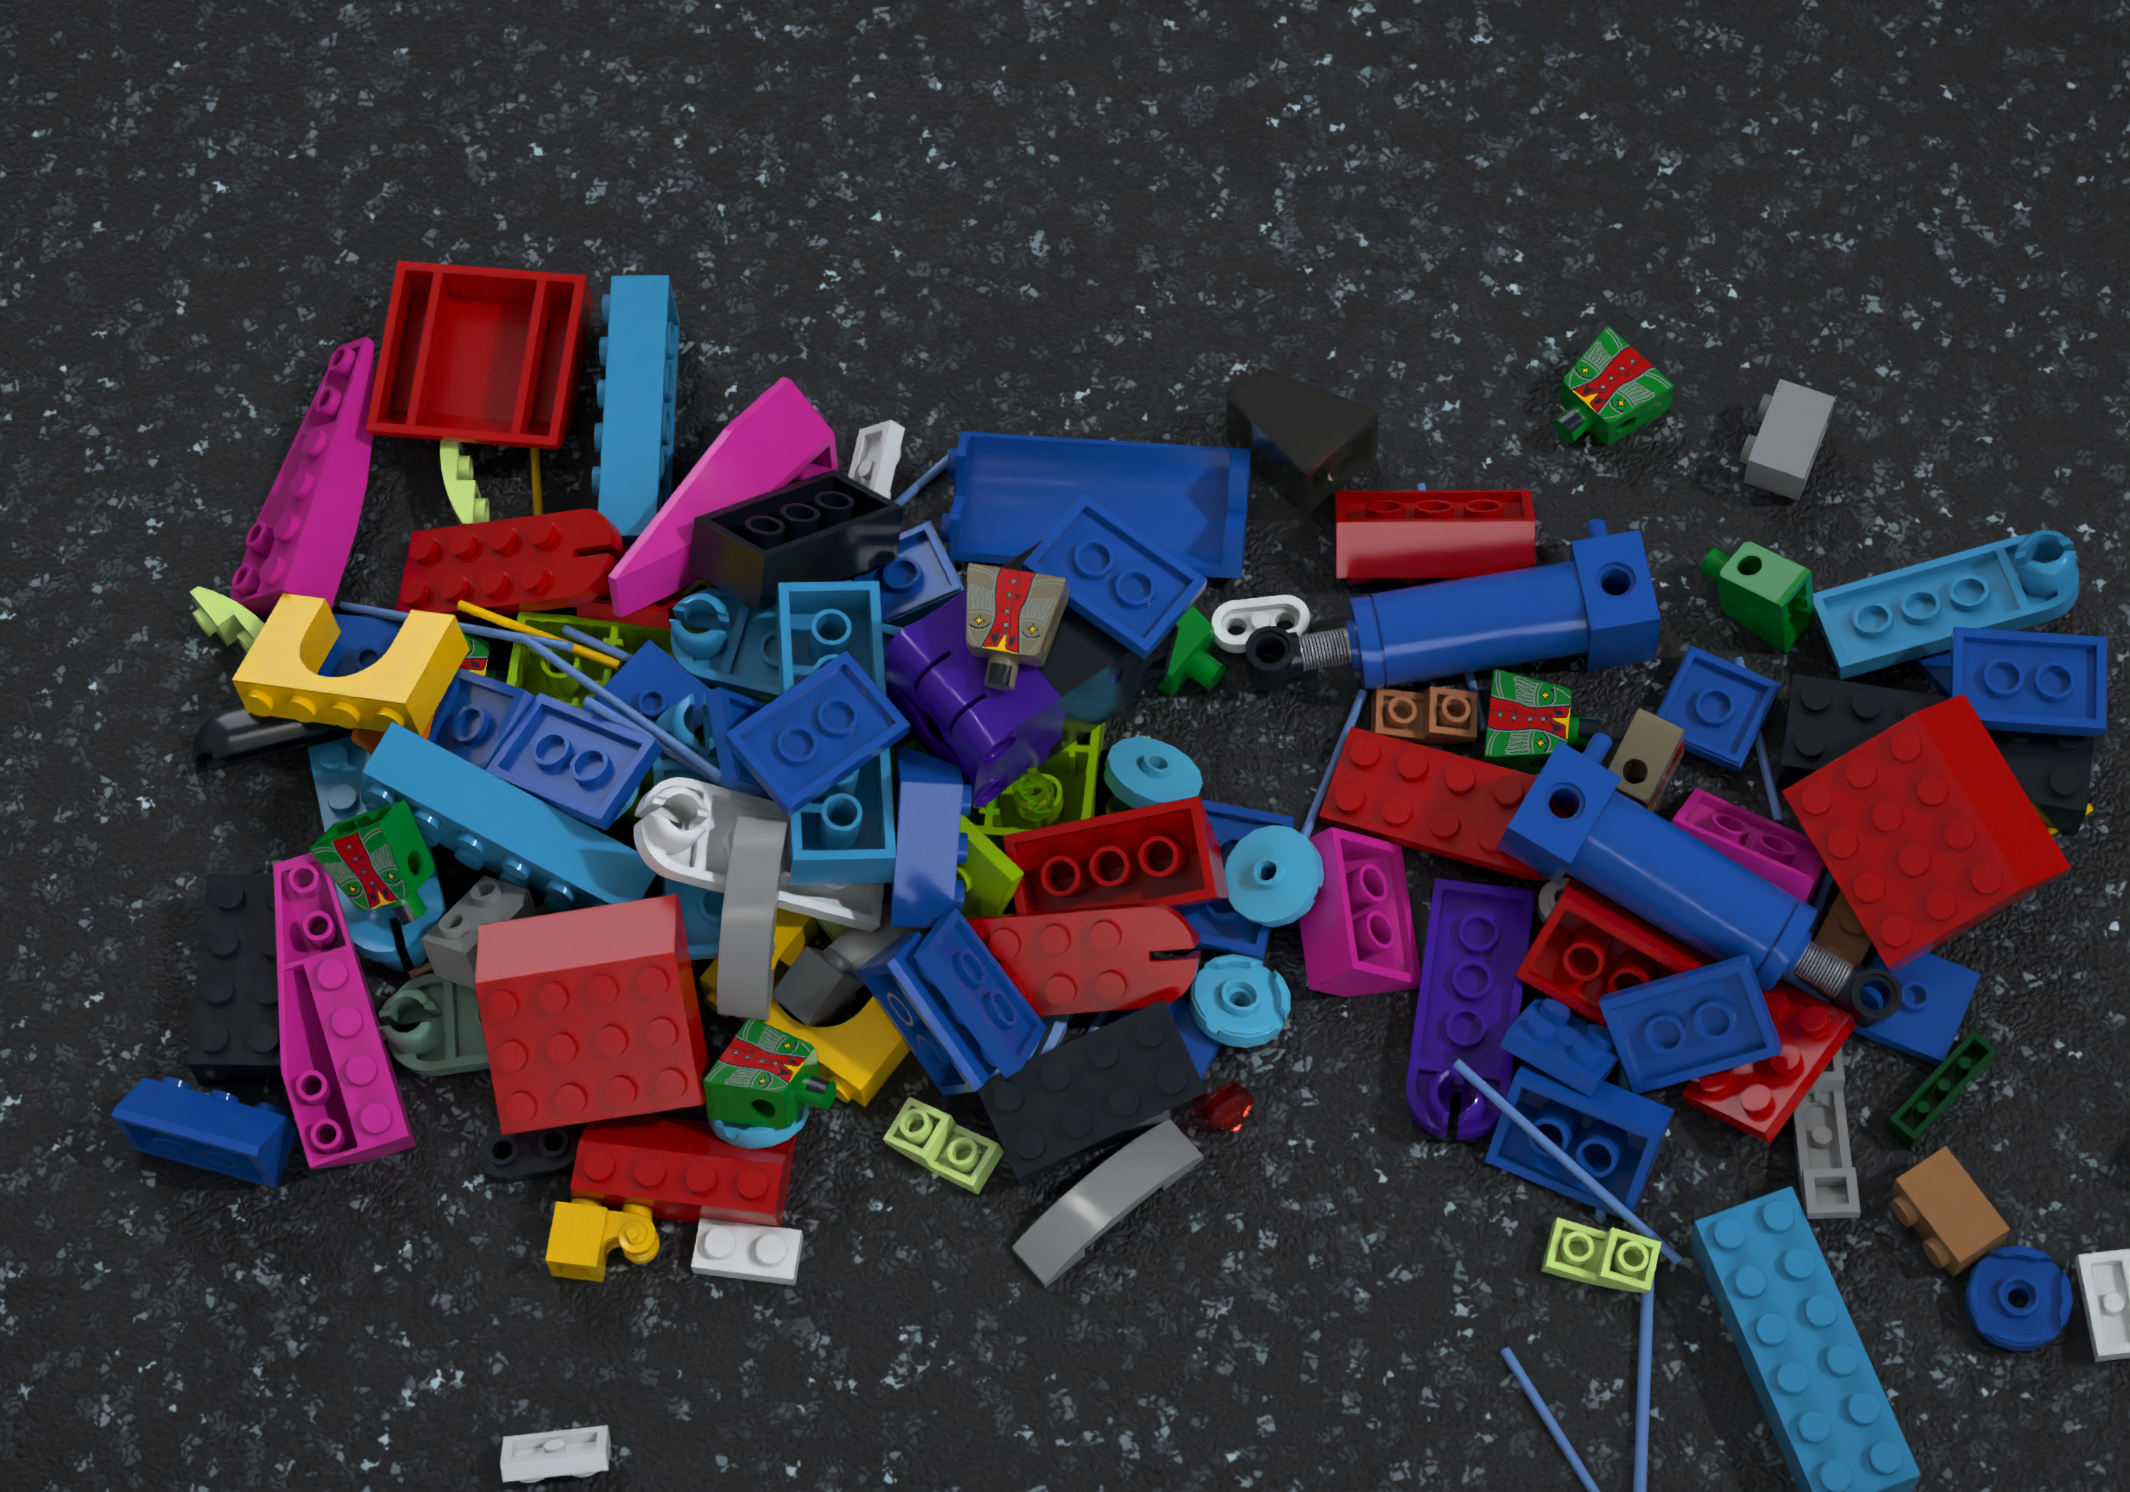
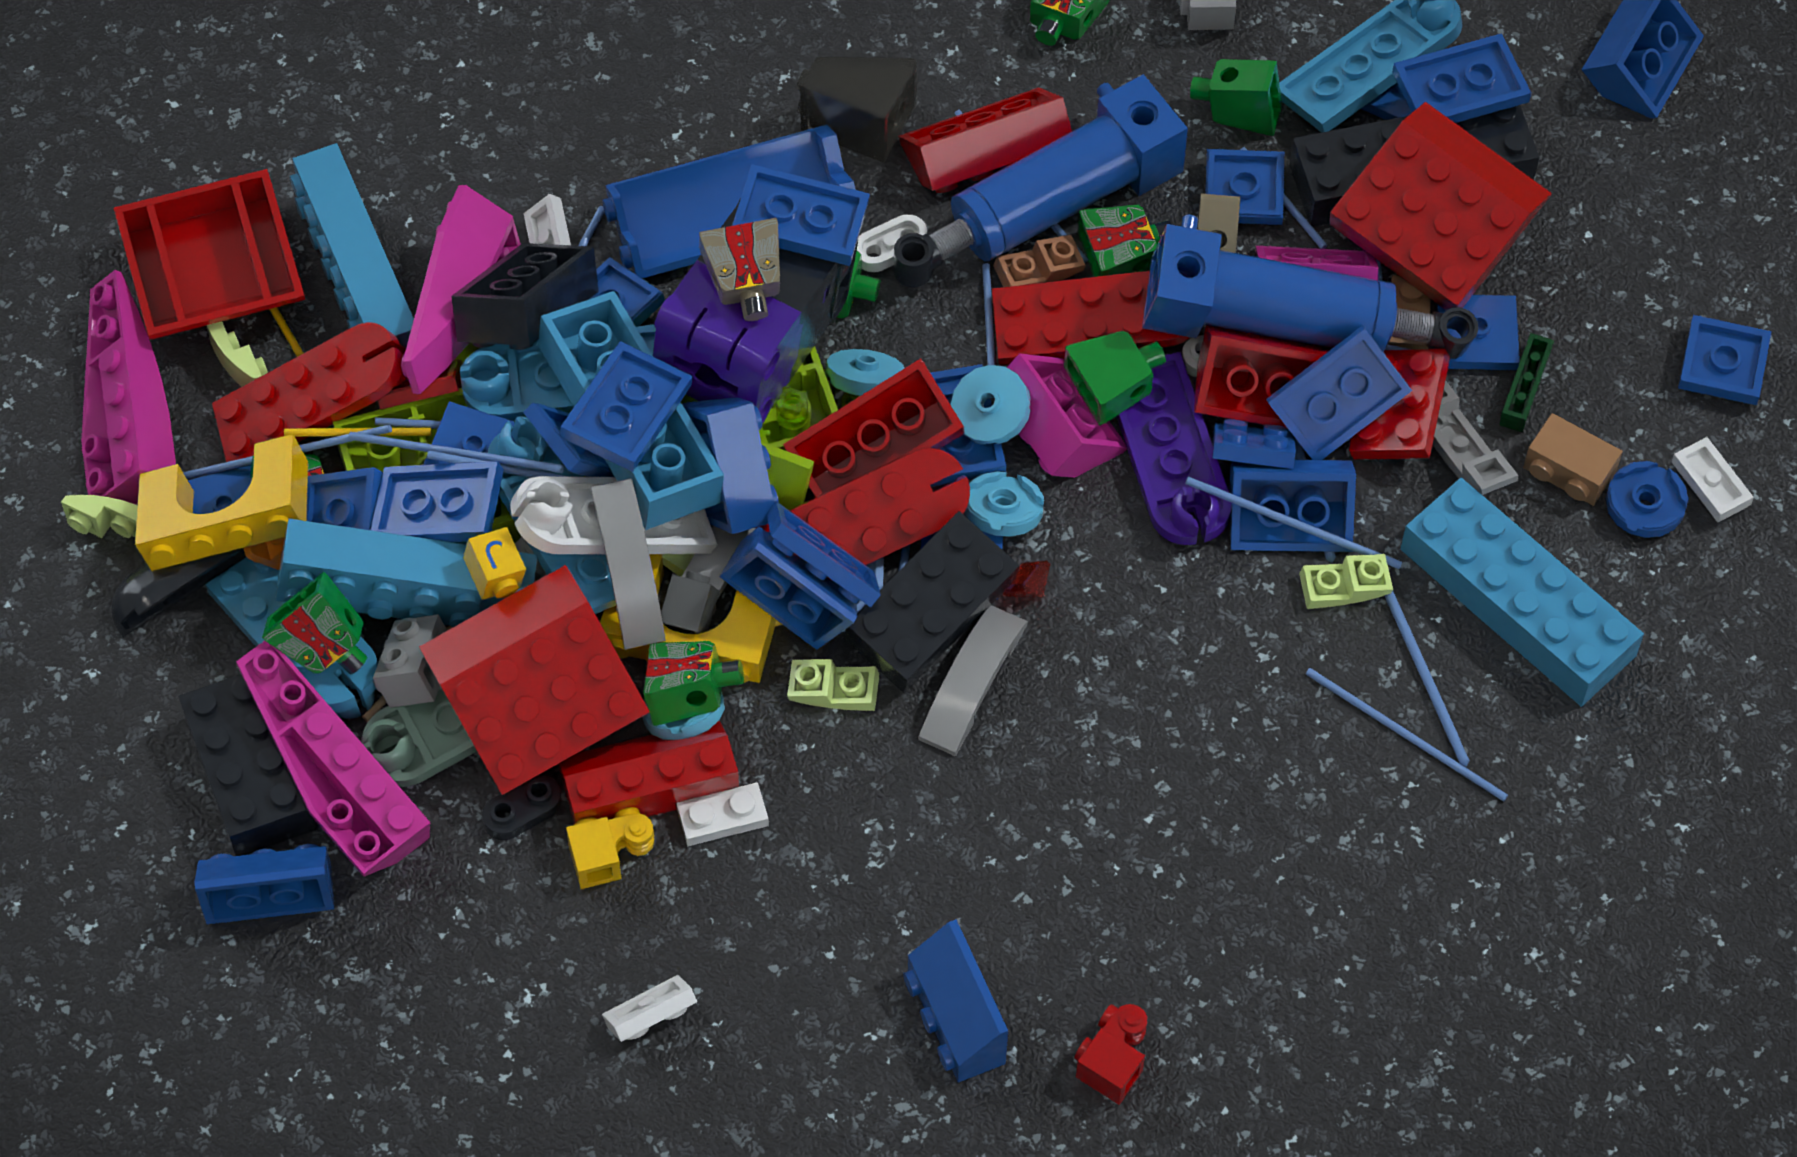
camera: 30 degrees left, 5 degrees down
(599, 863) = (494, 564): none -> yellow brick
(1437, 890) = (1112, 372): none -> green torso

